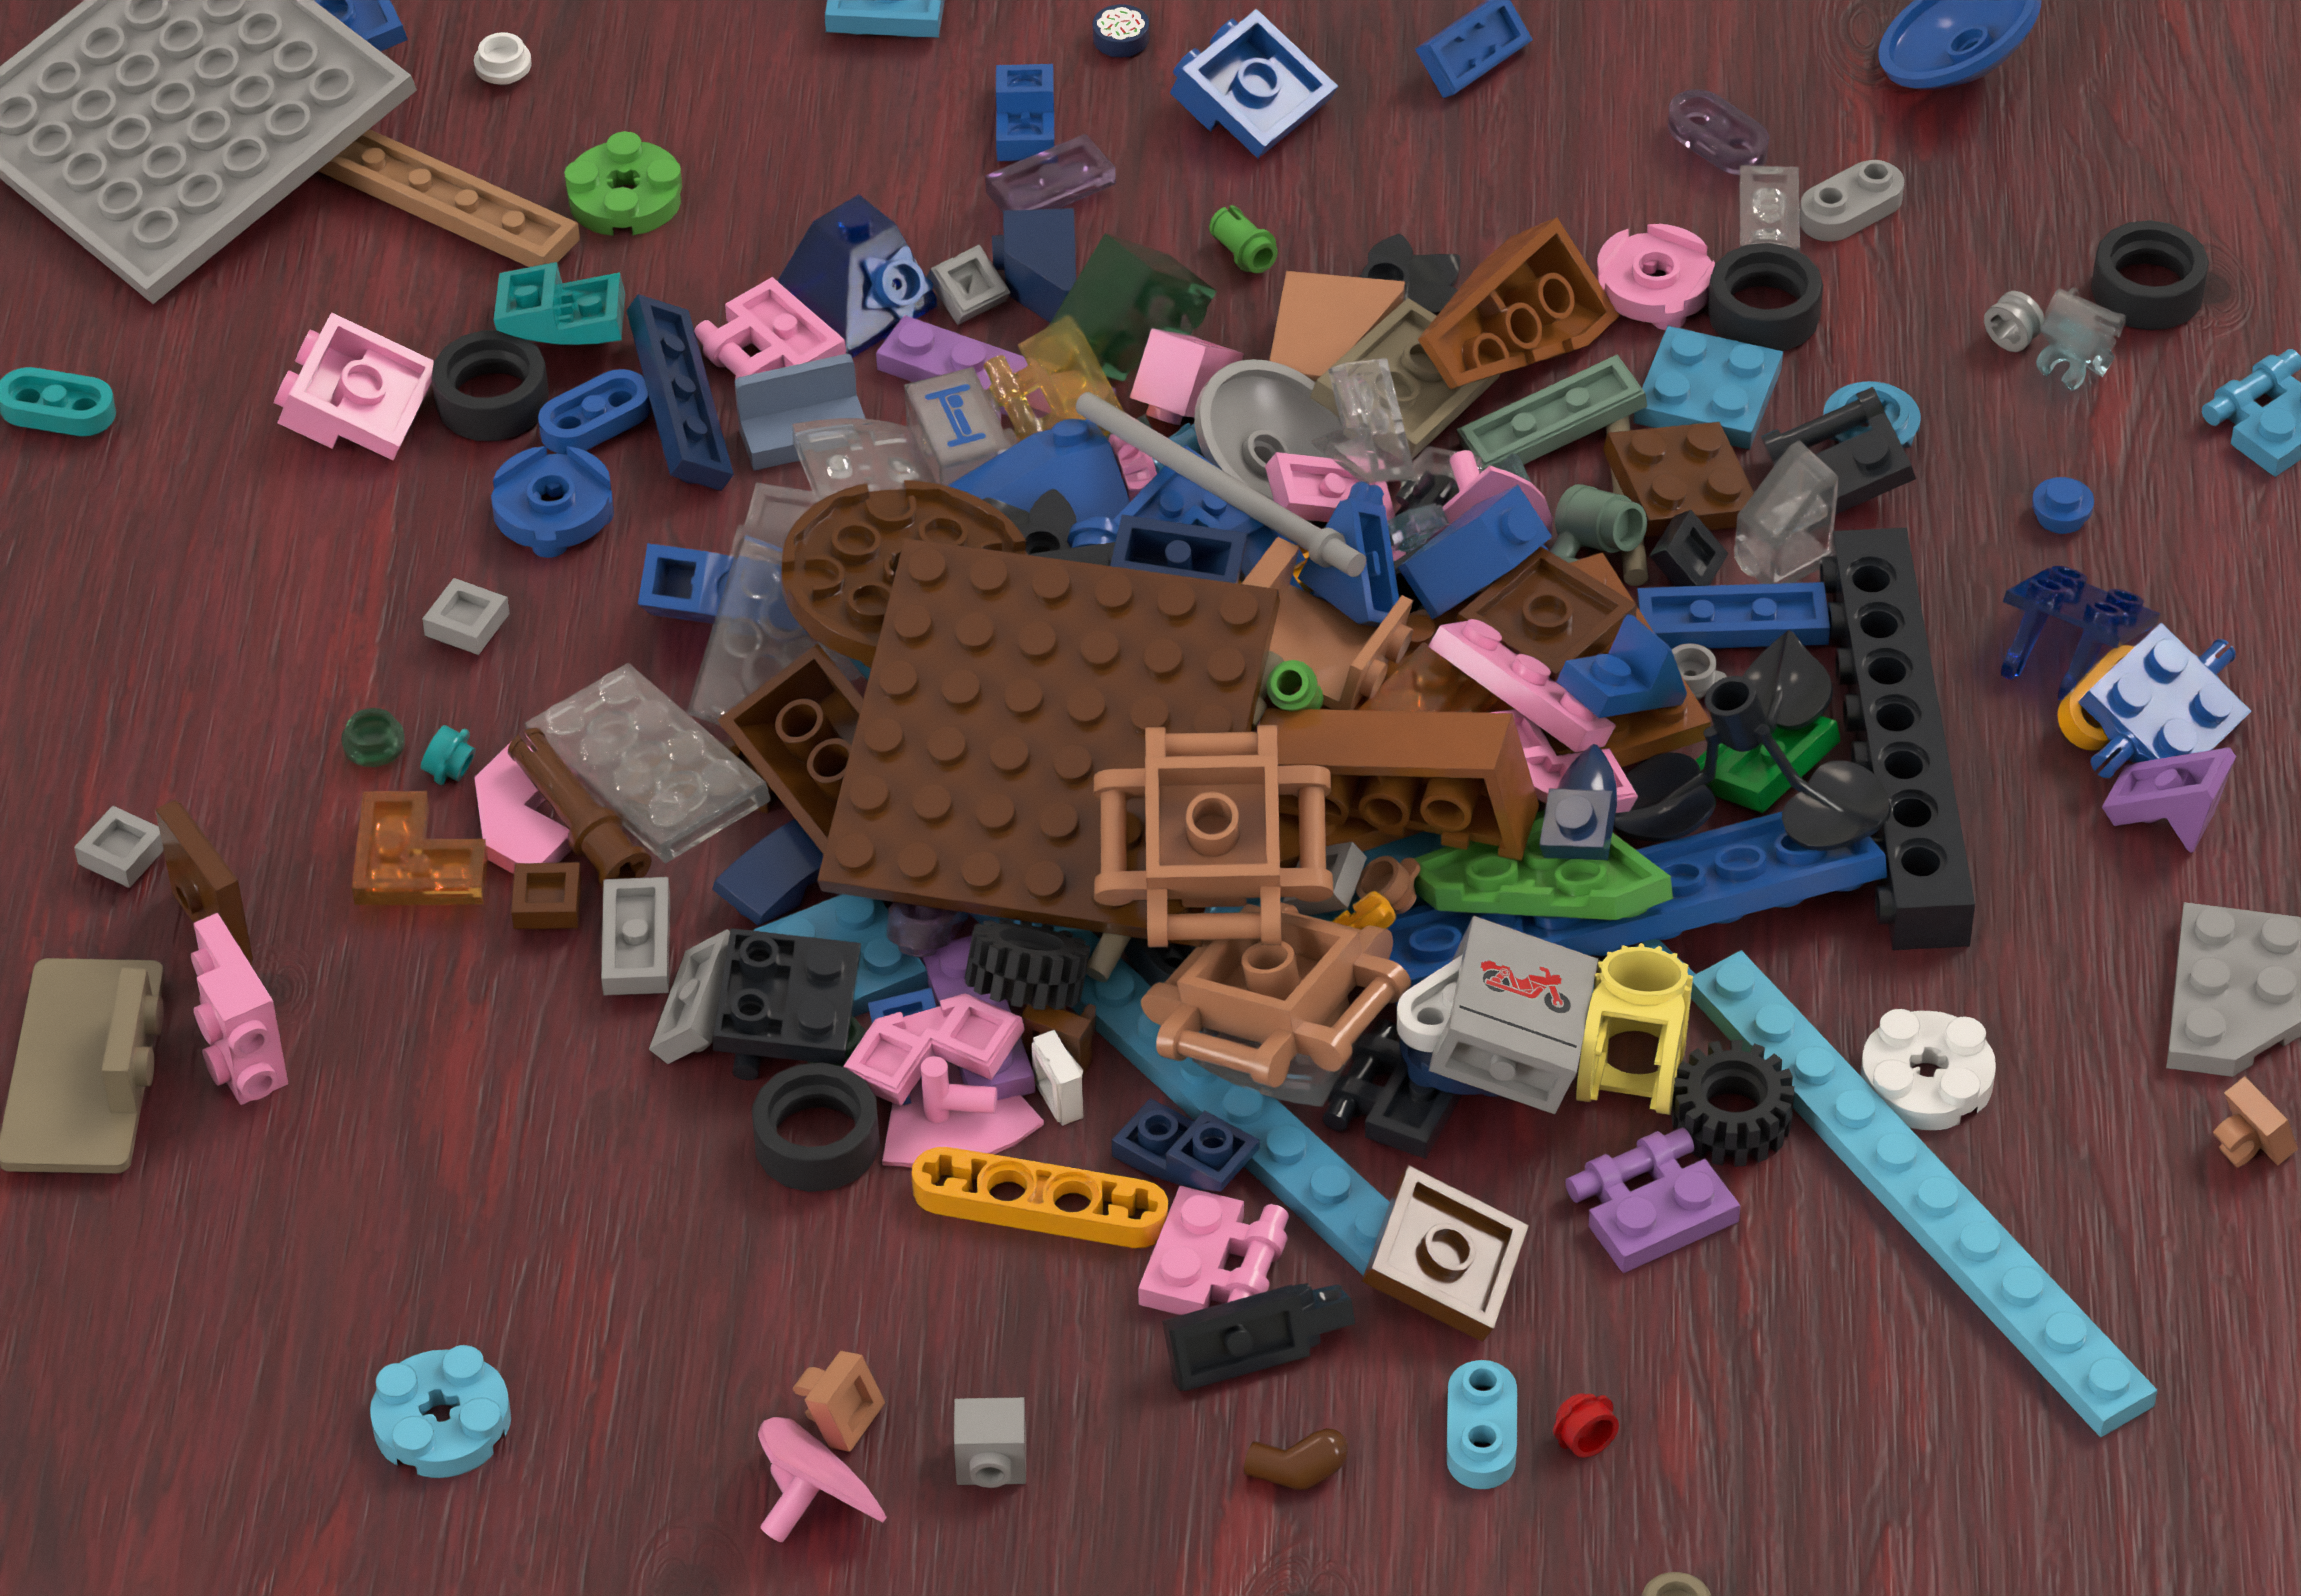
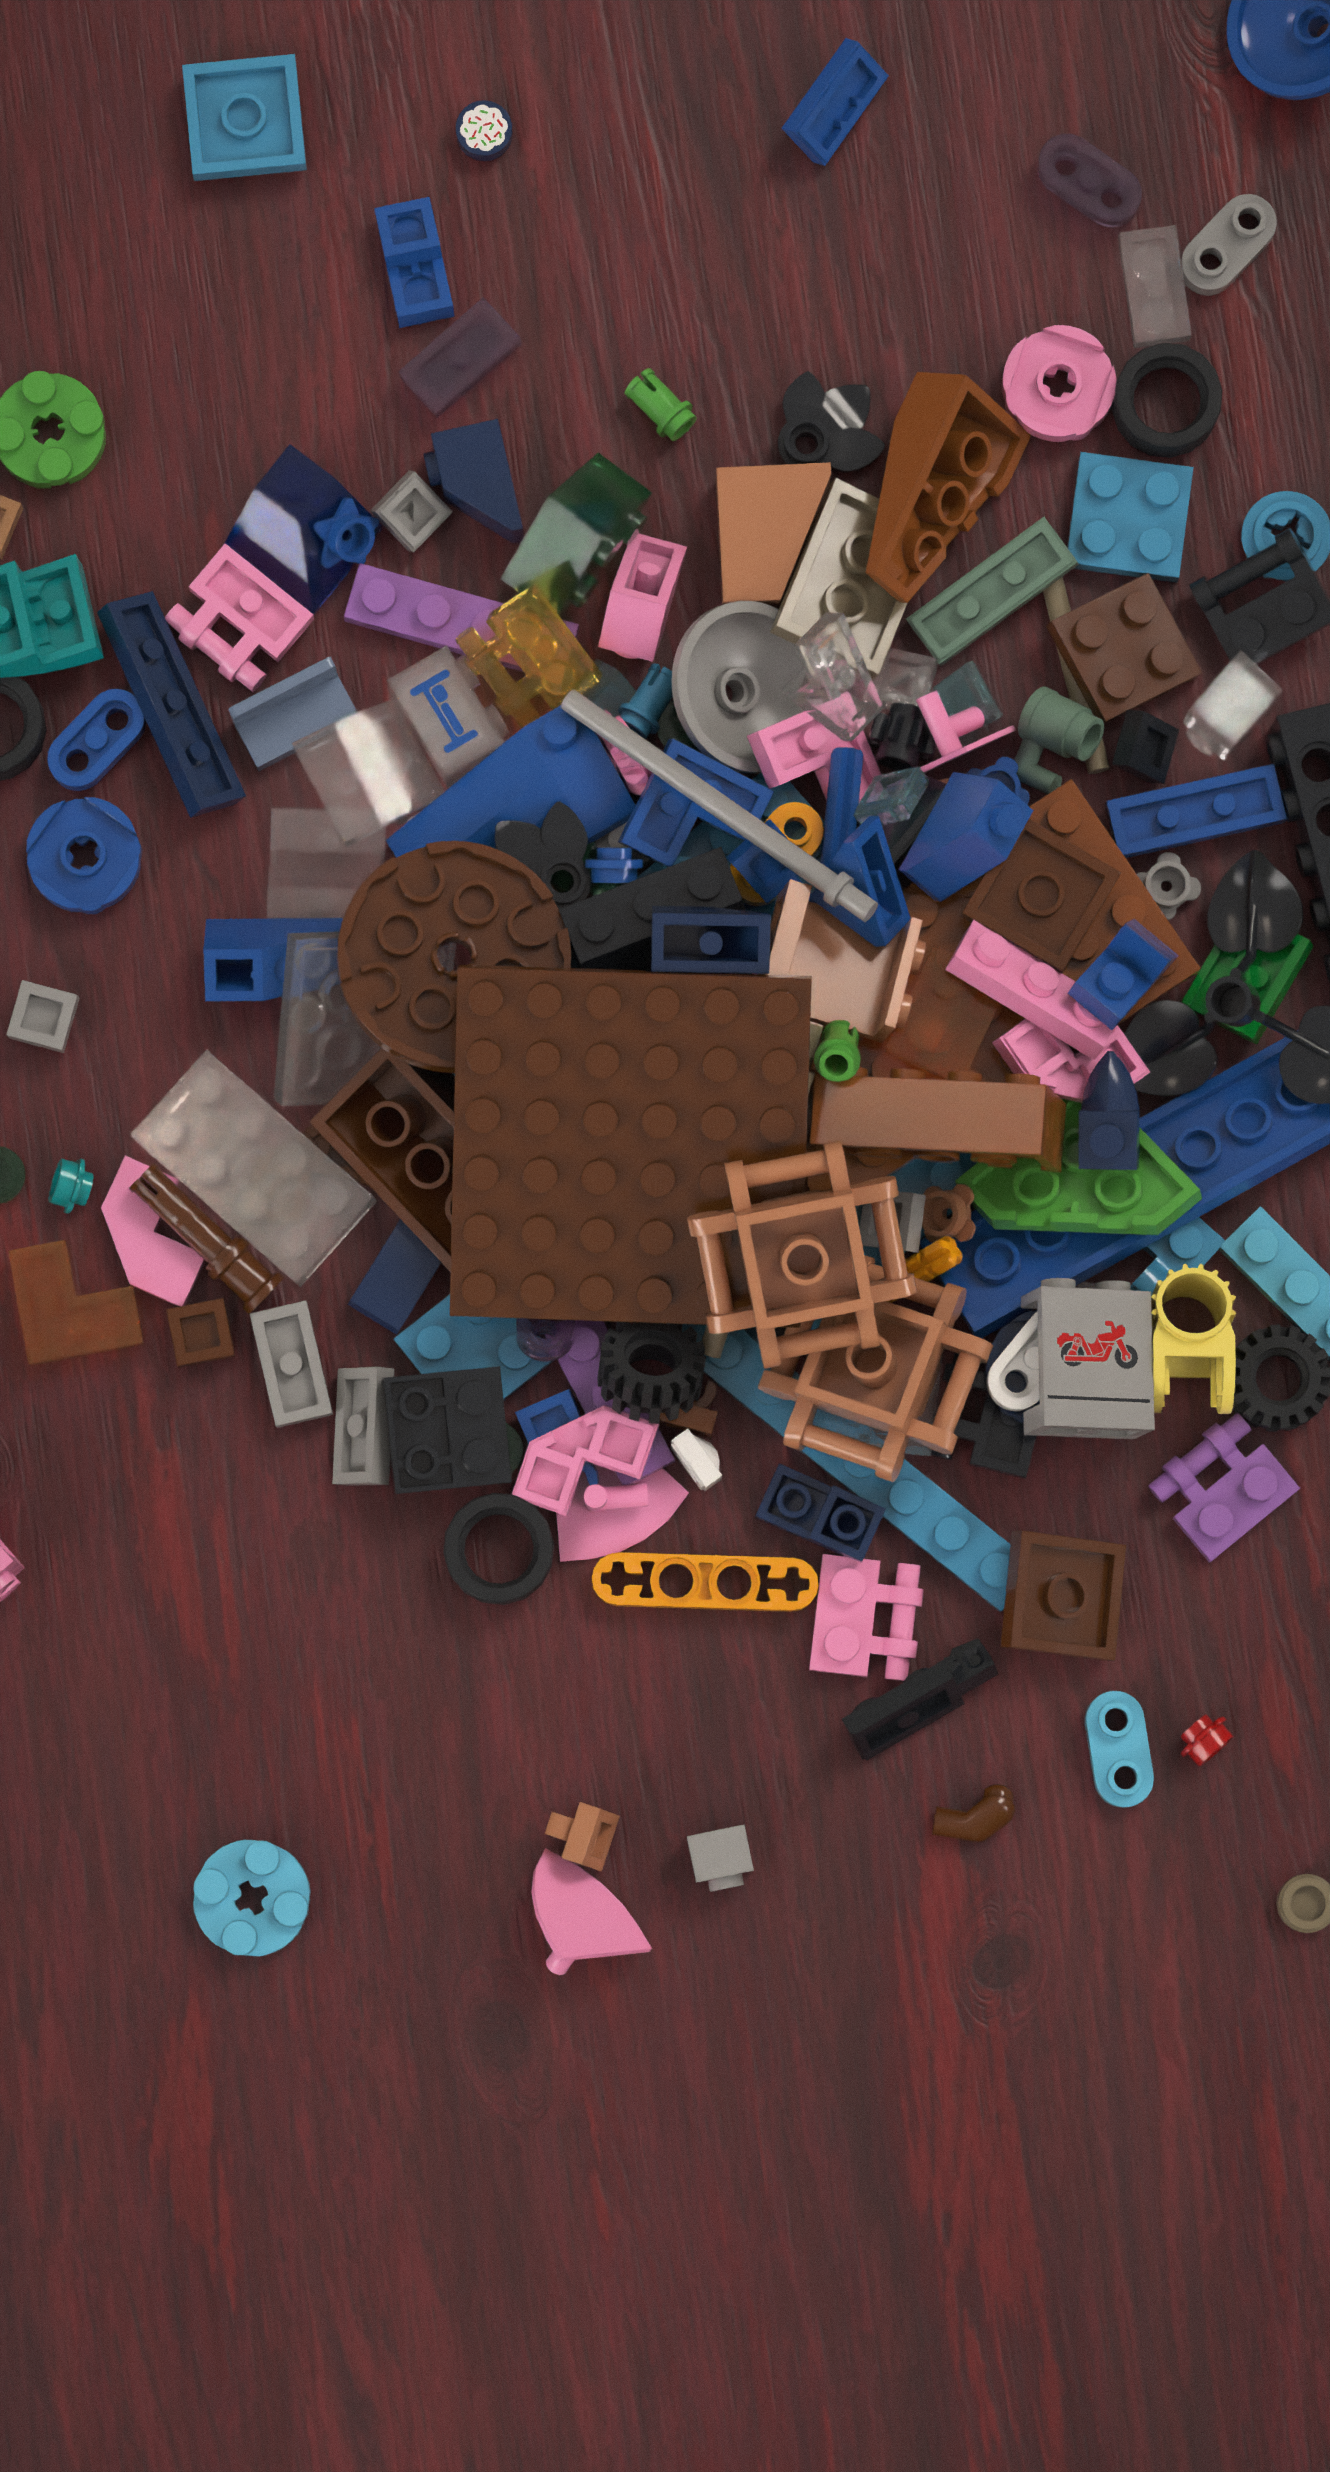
camera: 15 degrees left, 35 degrees up
(1251, 83) = (630, 199): plate -> none

